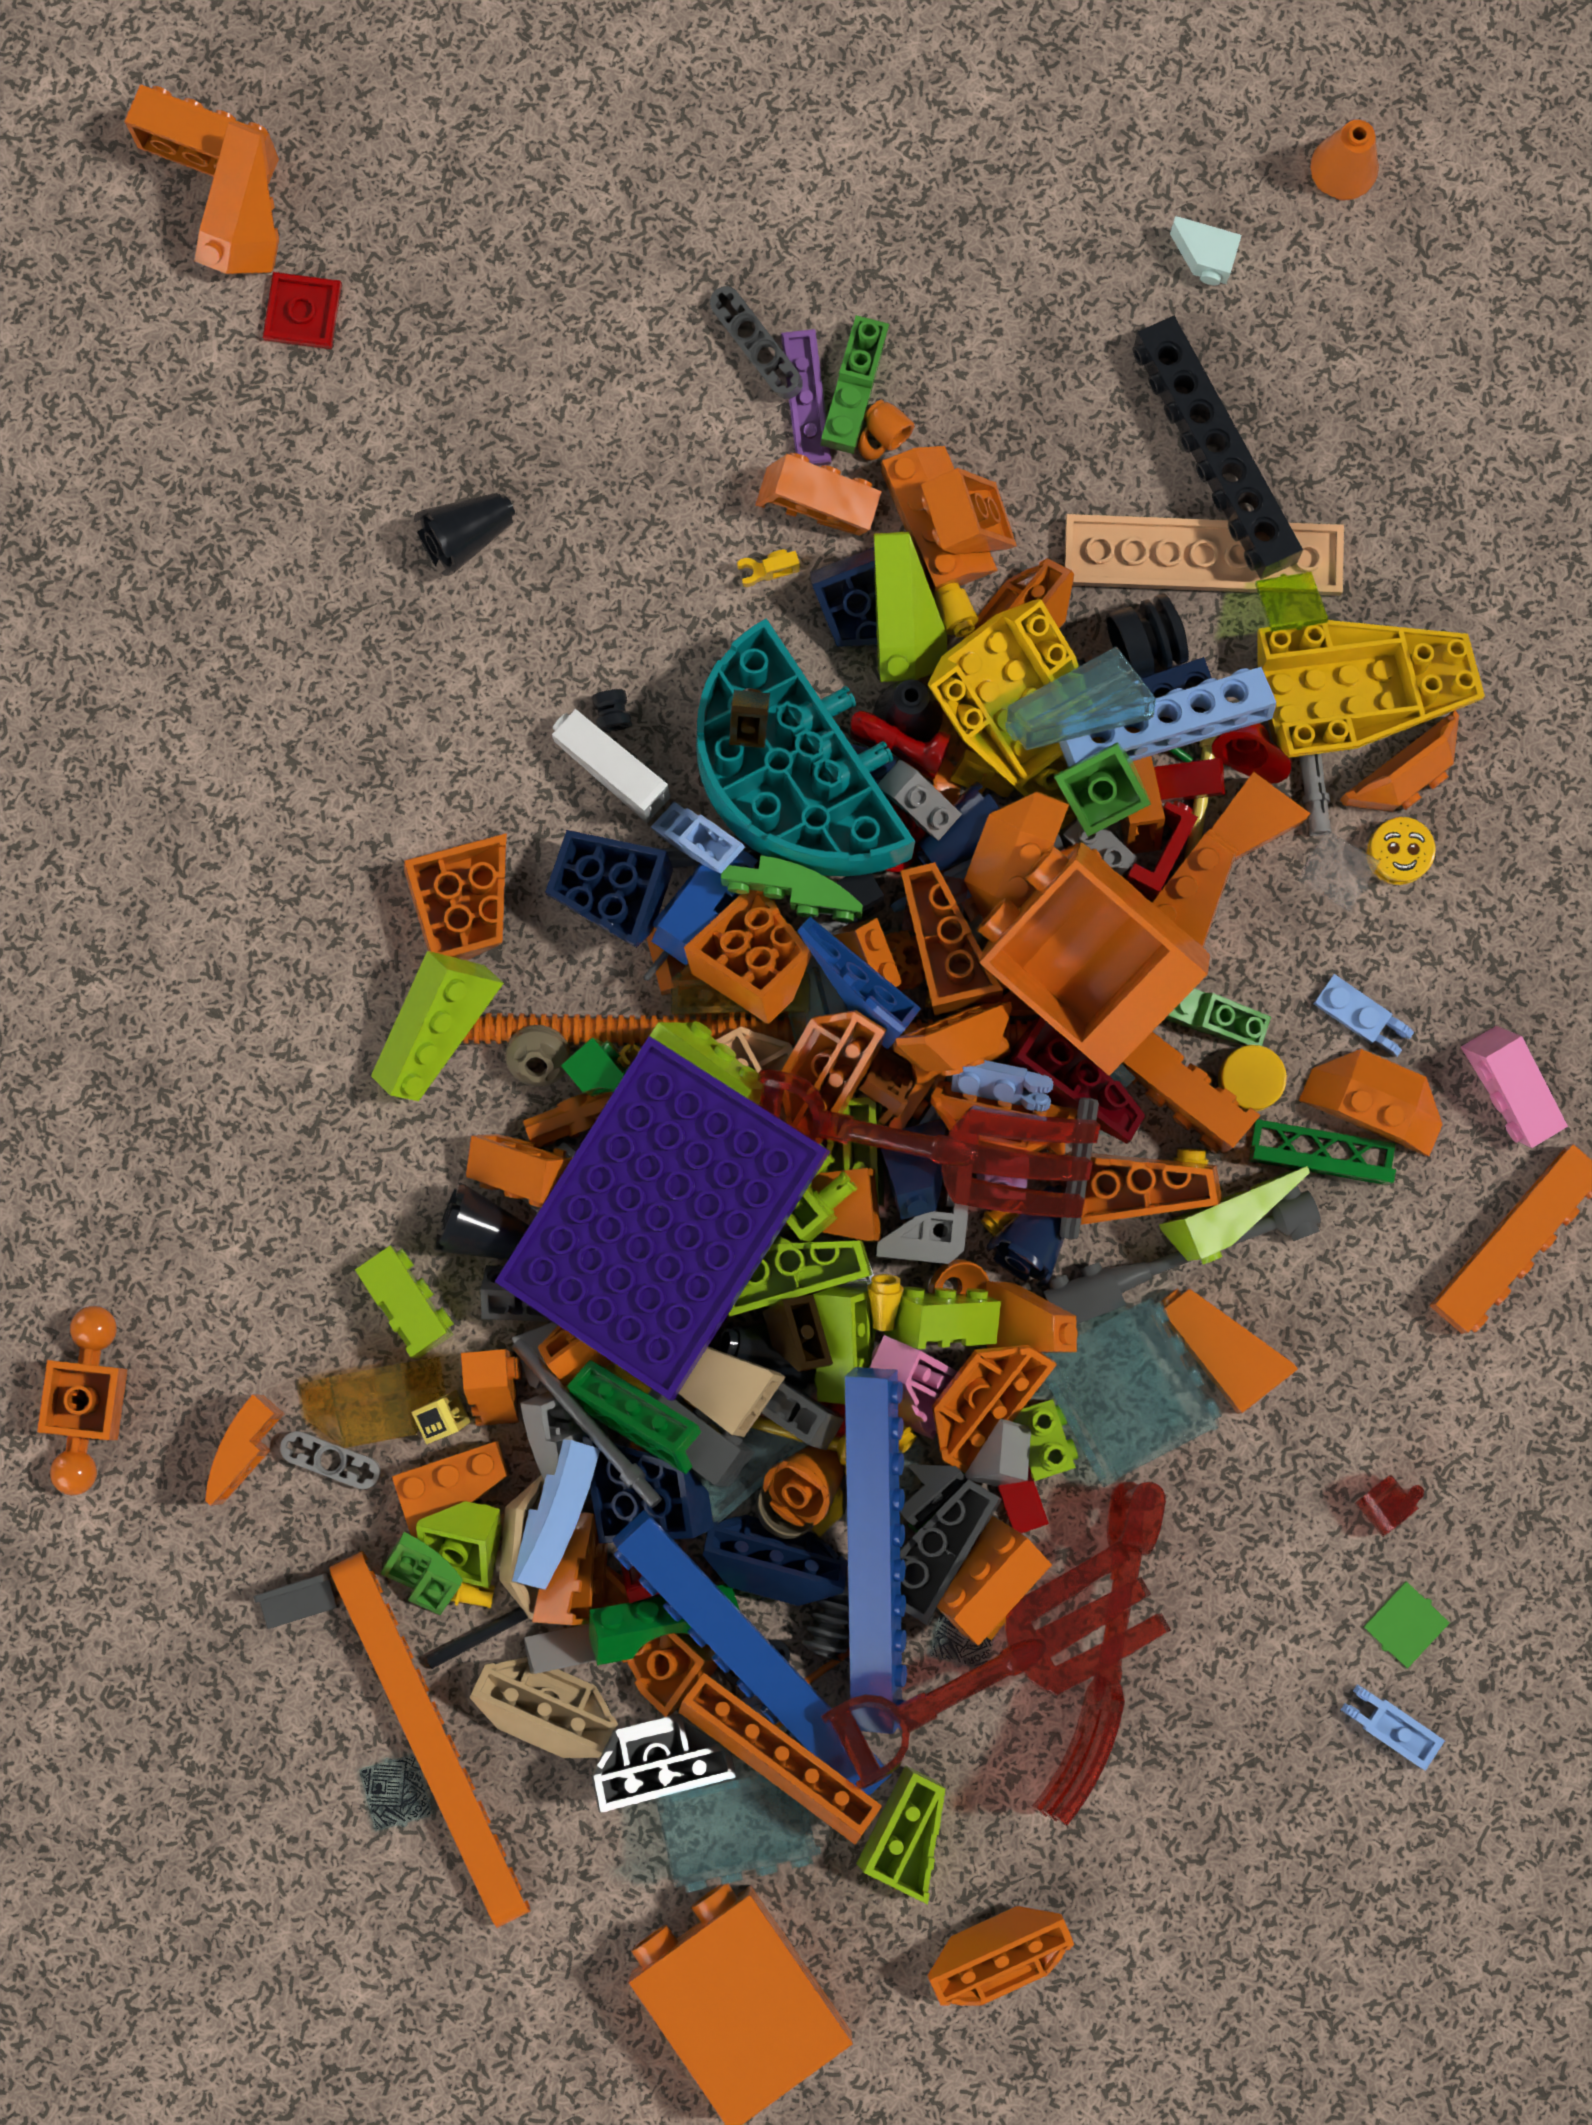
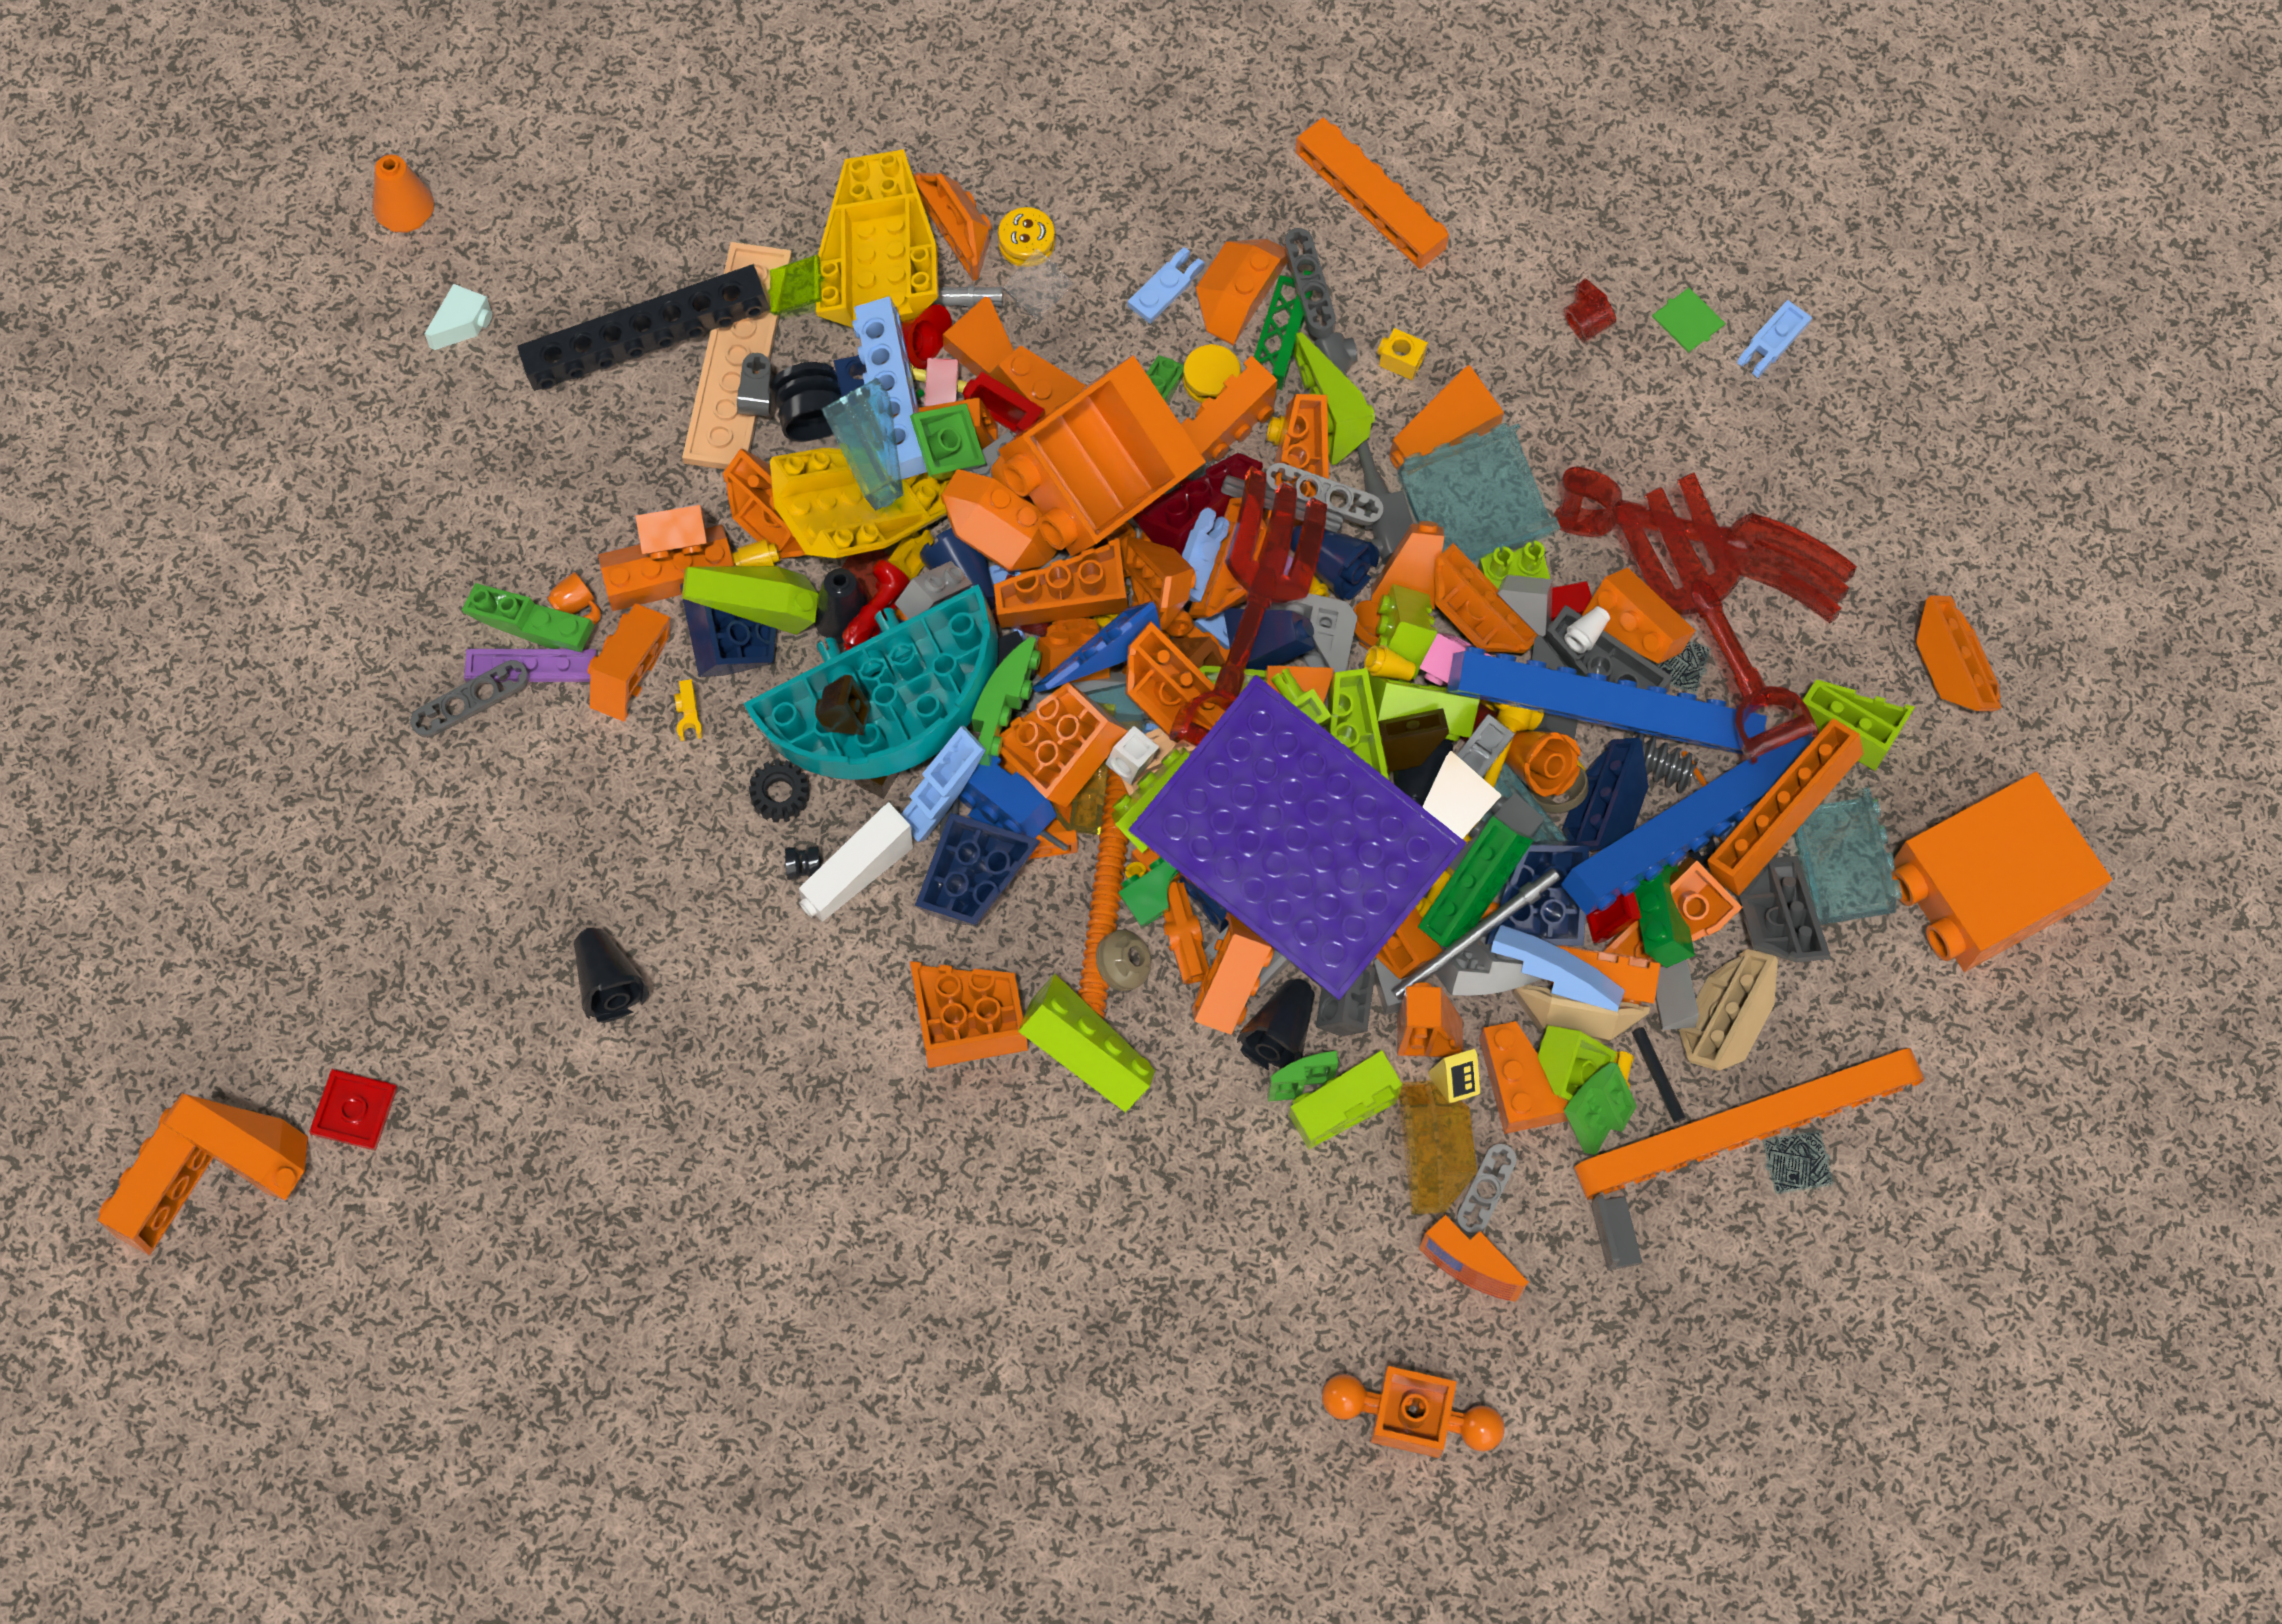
camera: 85 degrees left, 15 degrees down
(417, 1246) = (1290, 1080): none -> bright green slope
(674, 661) = (773, 774): none -> black tyre
(749, 1034) = (1132, 755): none -> white brick
(966, 1523) = (1585, 631): none -> white cone
(1103, 1214) = (1324, 488): none -> light grey beam
(1151, 577) = (755, 389): none -> dark grey piece
(1294, 1299) = (1402, 342): none -> yellow brick
(1374, 1171) = (1310, 282): none -> dark grey beam
(1515, 1085) = (1239, 175): bright pink wedge -> none

